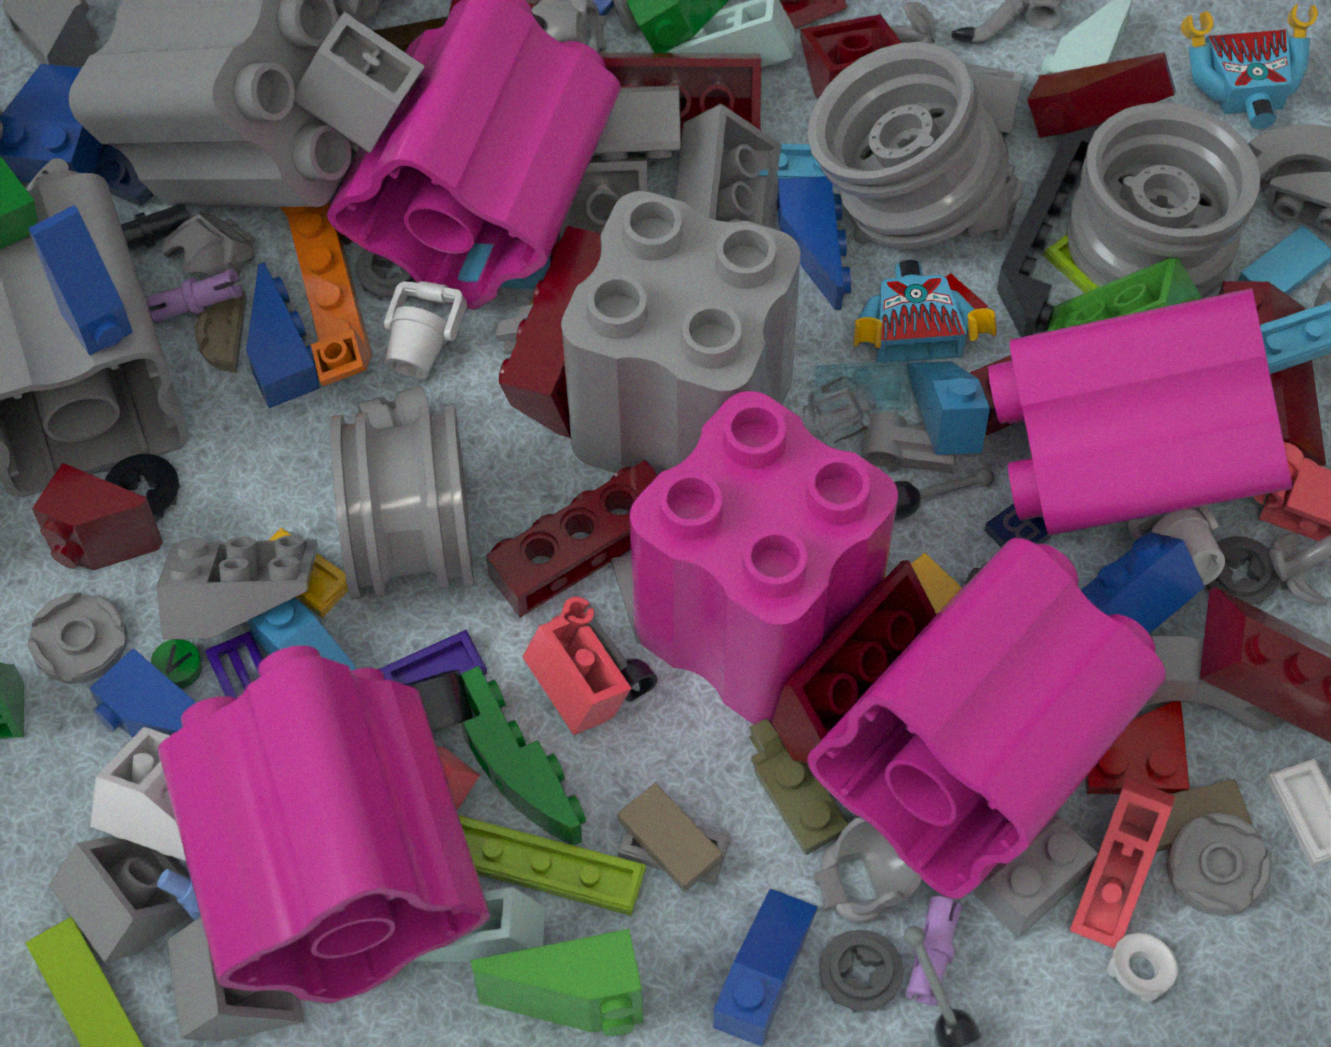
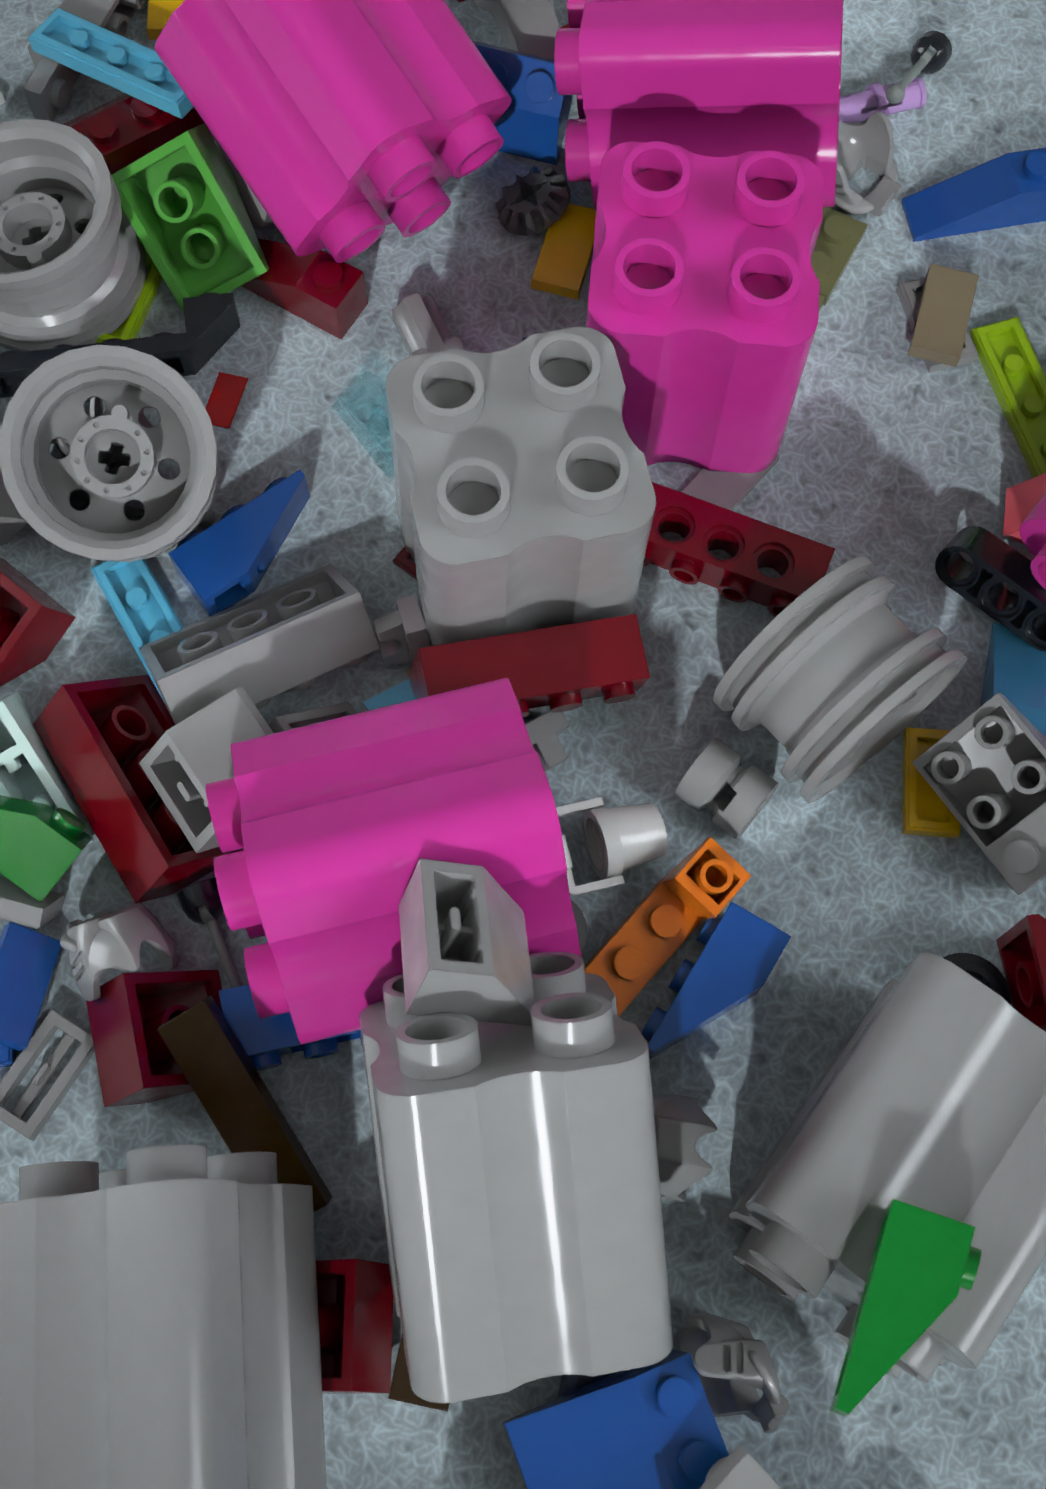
camera: 125 degrees left, 10 degrees up
(80, 281) = (971, 1030): blue slope -> none
(153, 227) = (695, 1249): black pin -> none
(194, 296) = (726, 1107): lavender pin -> none
(220, 333) = (735, 1060): dark tan tile -> none
(446, 655) = (933, 604): dark purple tile -> none
(517, 769) = (973, 468): green slope -> none
(576, 668) = (855, 470): coral hinge -> none
(632, 669) = (819, 436): black hinge -> none
(871, 950) = (923, 125): dark grey gear -> none
(910, 497) = (482, 320): hinge -> none
(919, 318) = (285, 401): torso -> none
(950, 406) = (372, 316): dark azure slope -> none
(1008, 526) = (455, 230): dark blue tile -> none

